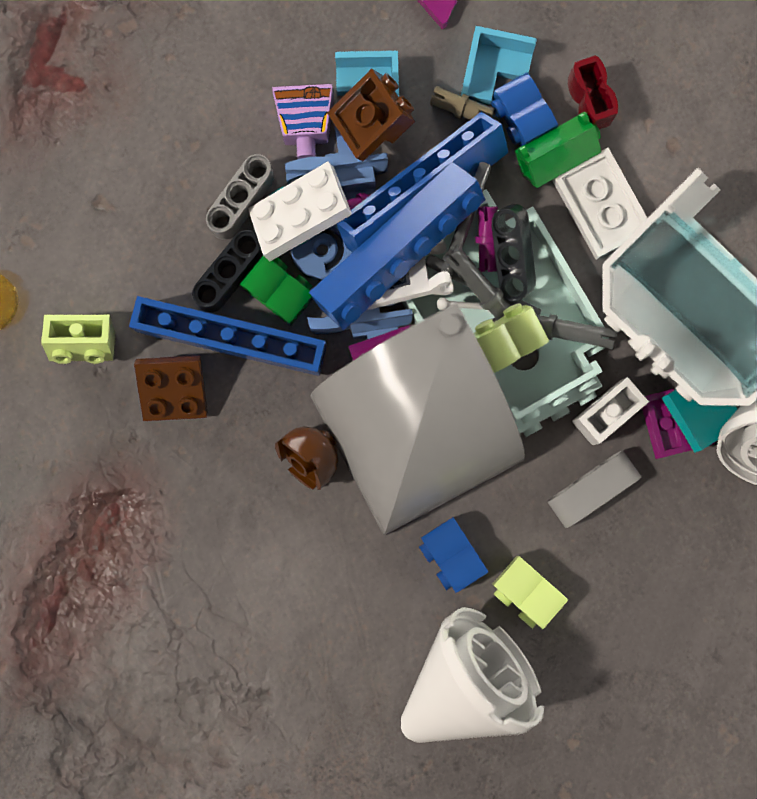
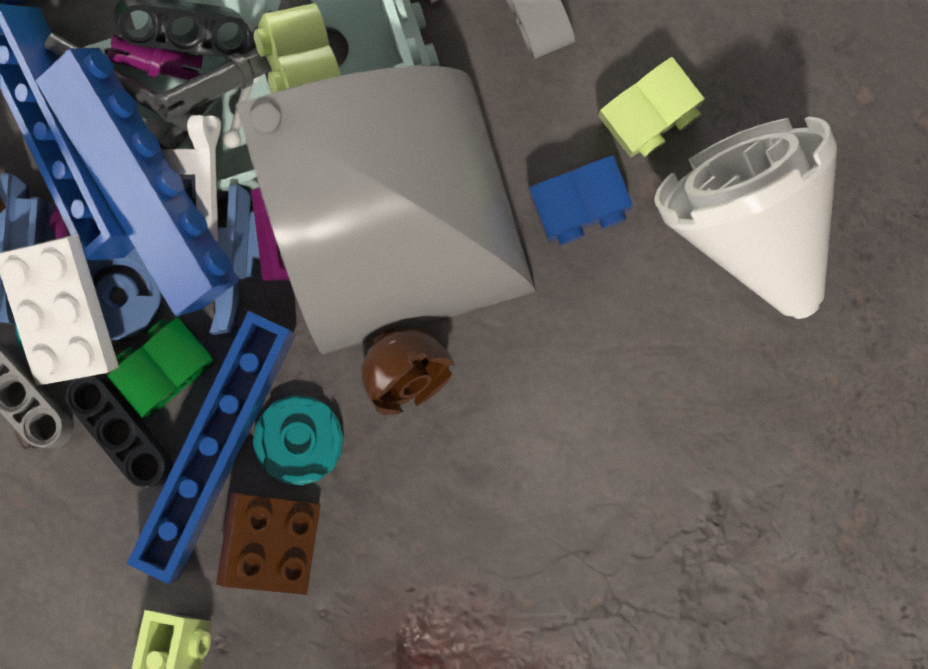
camera: 75 degrees left, 0 degrees up
(247, 393) = (298, 440): none -> teal tile

